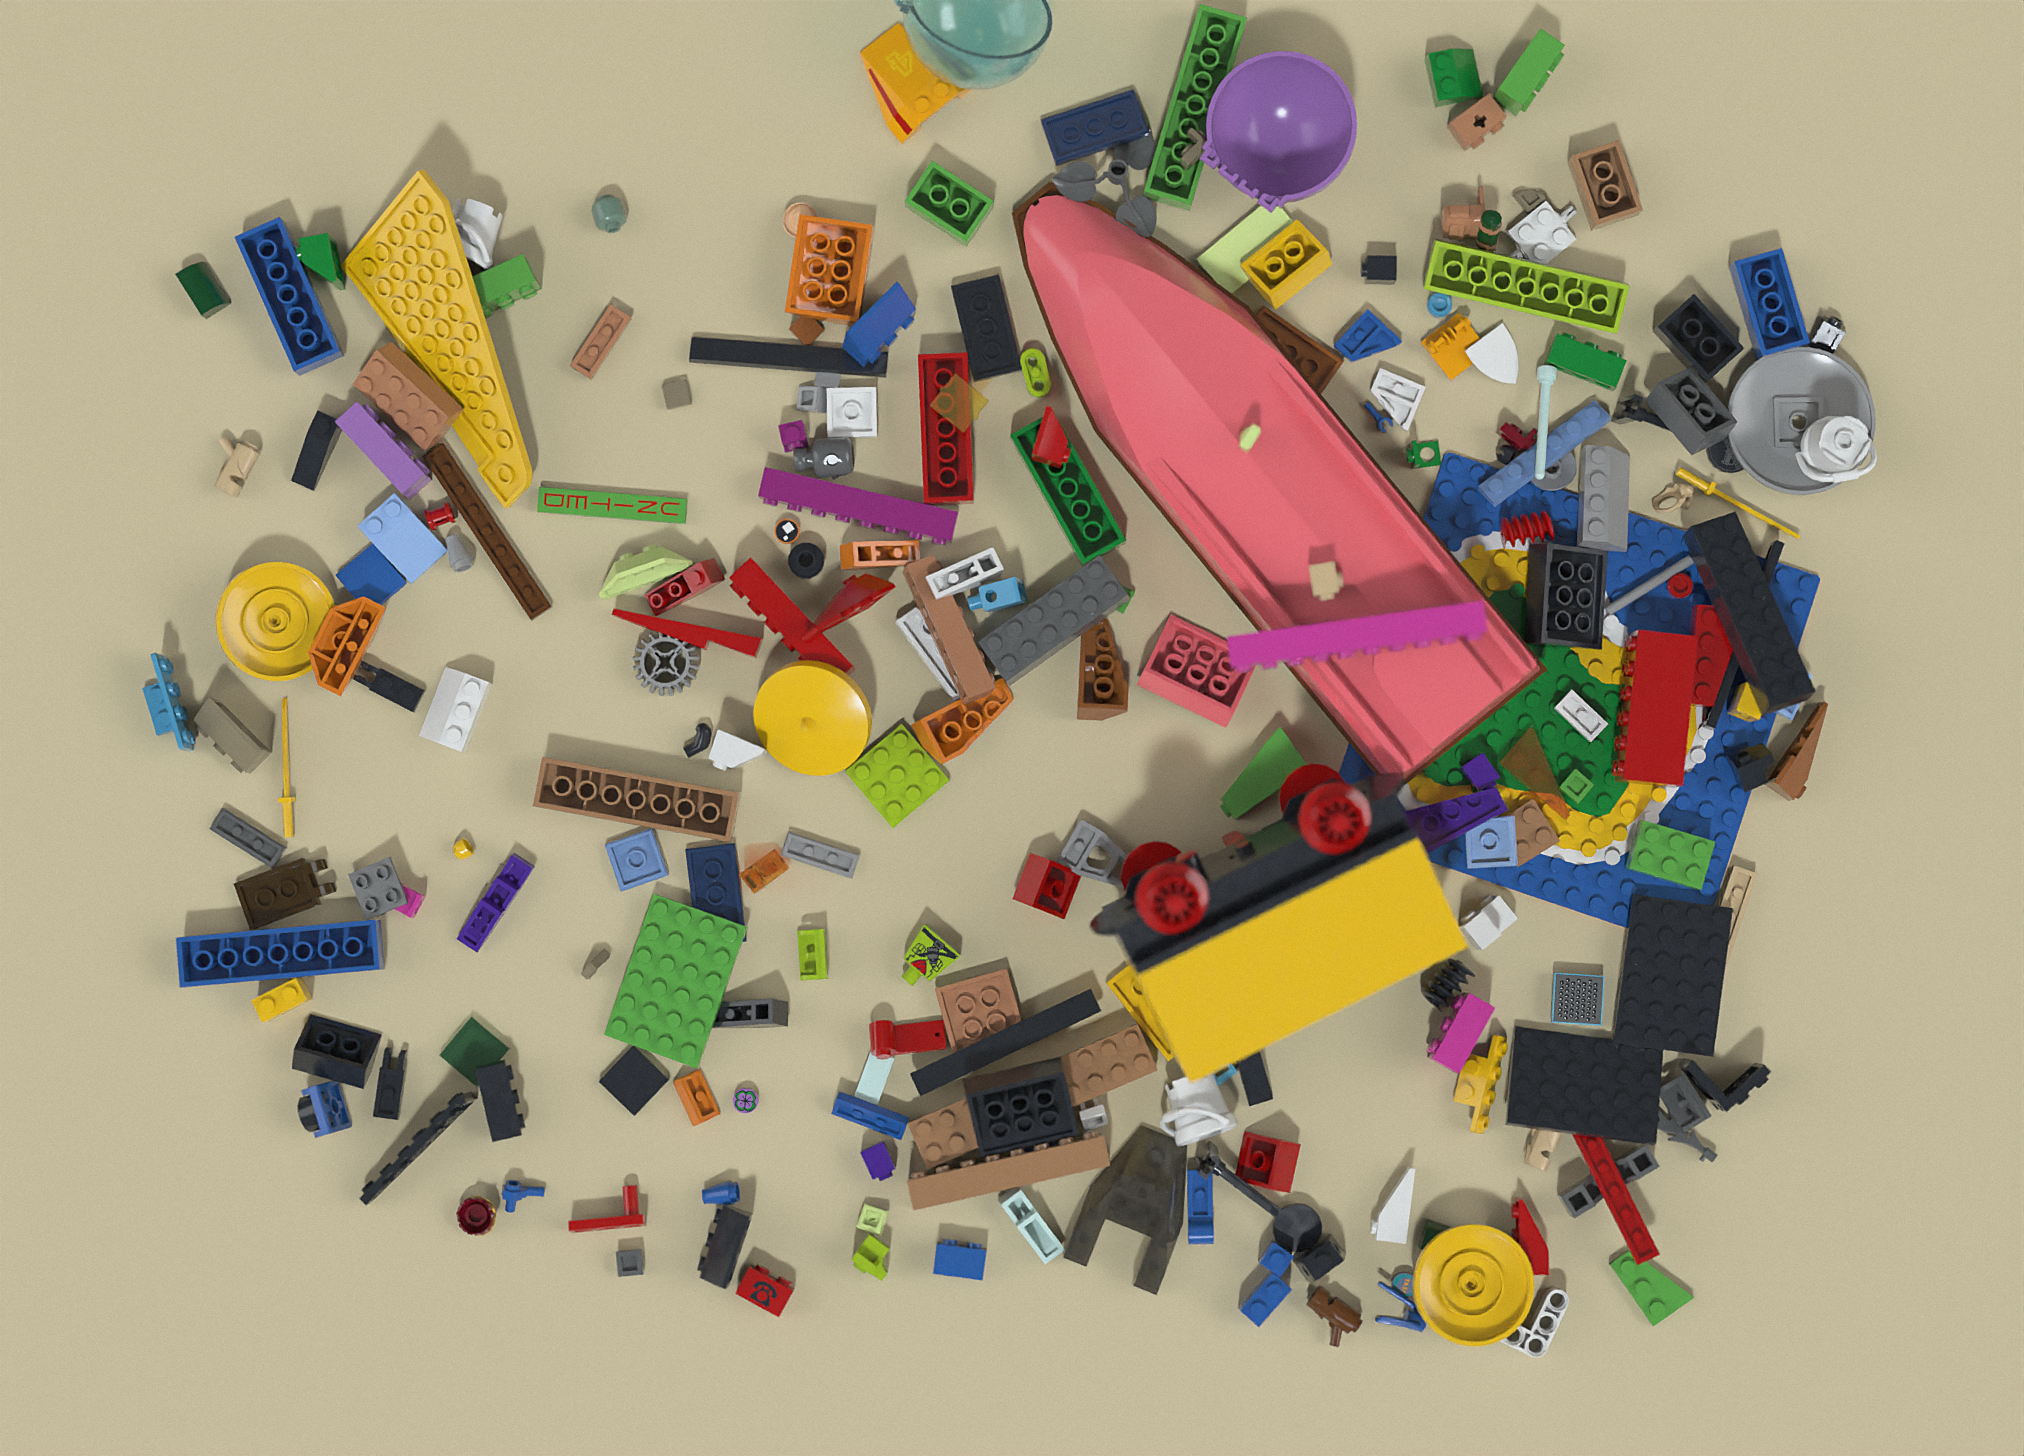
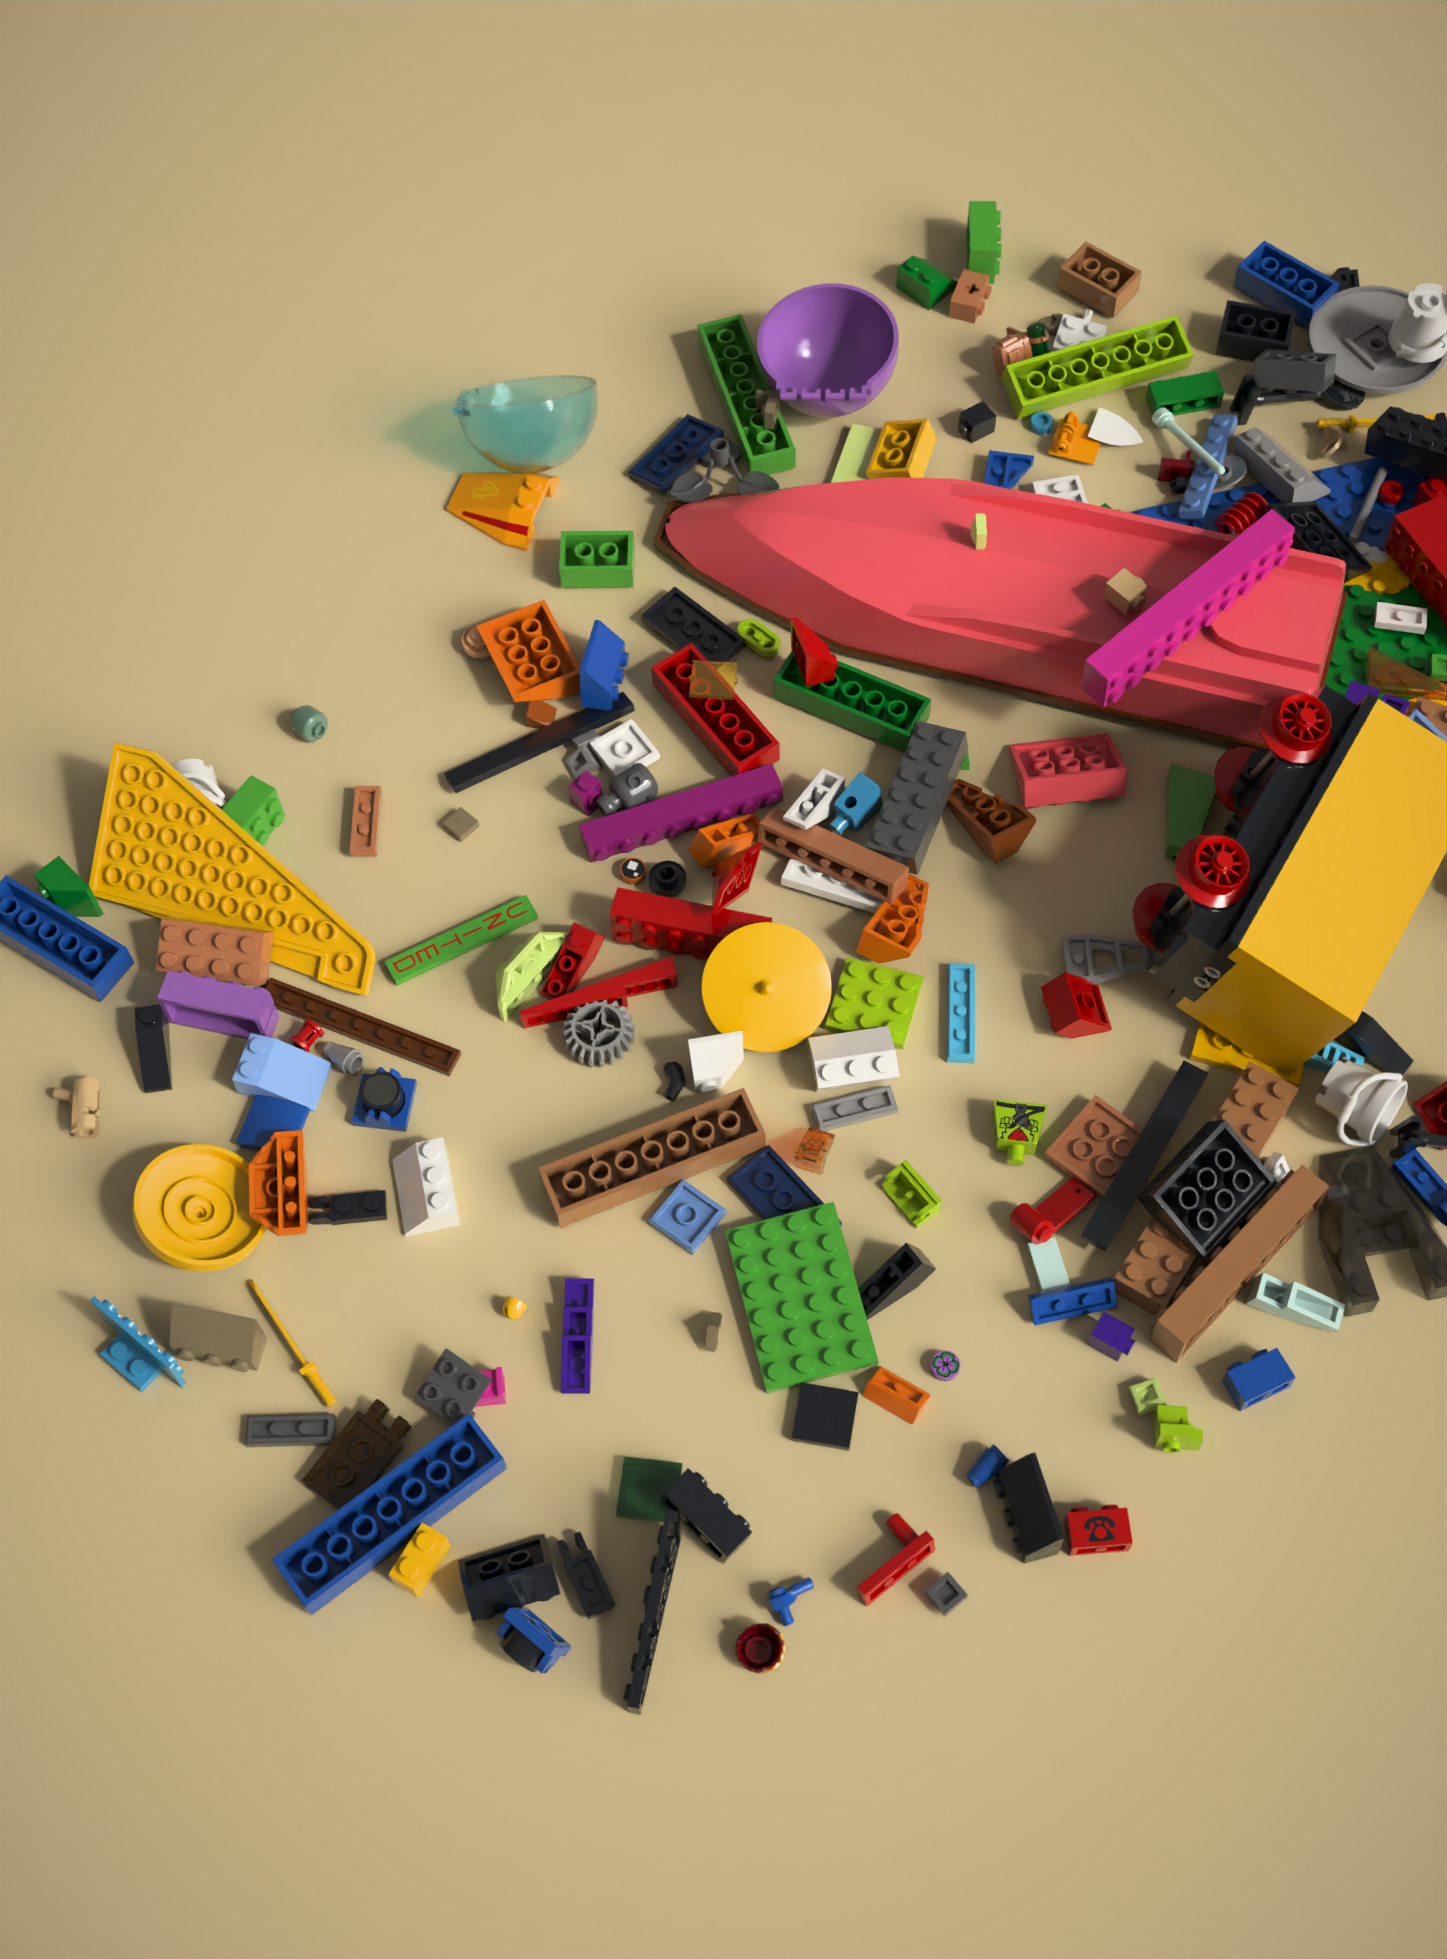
camera: 30 degrees left, 25 degrees down
(466, 612) = (383, 1097): none -> piece
(842, 818) = (853, 1058): none -> white slope
(958, 829) = (961, 1013): none -> medium azure tile

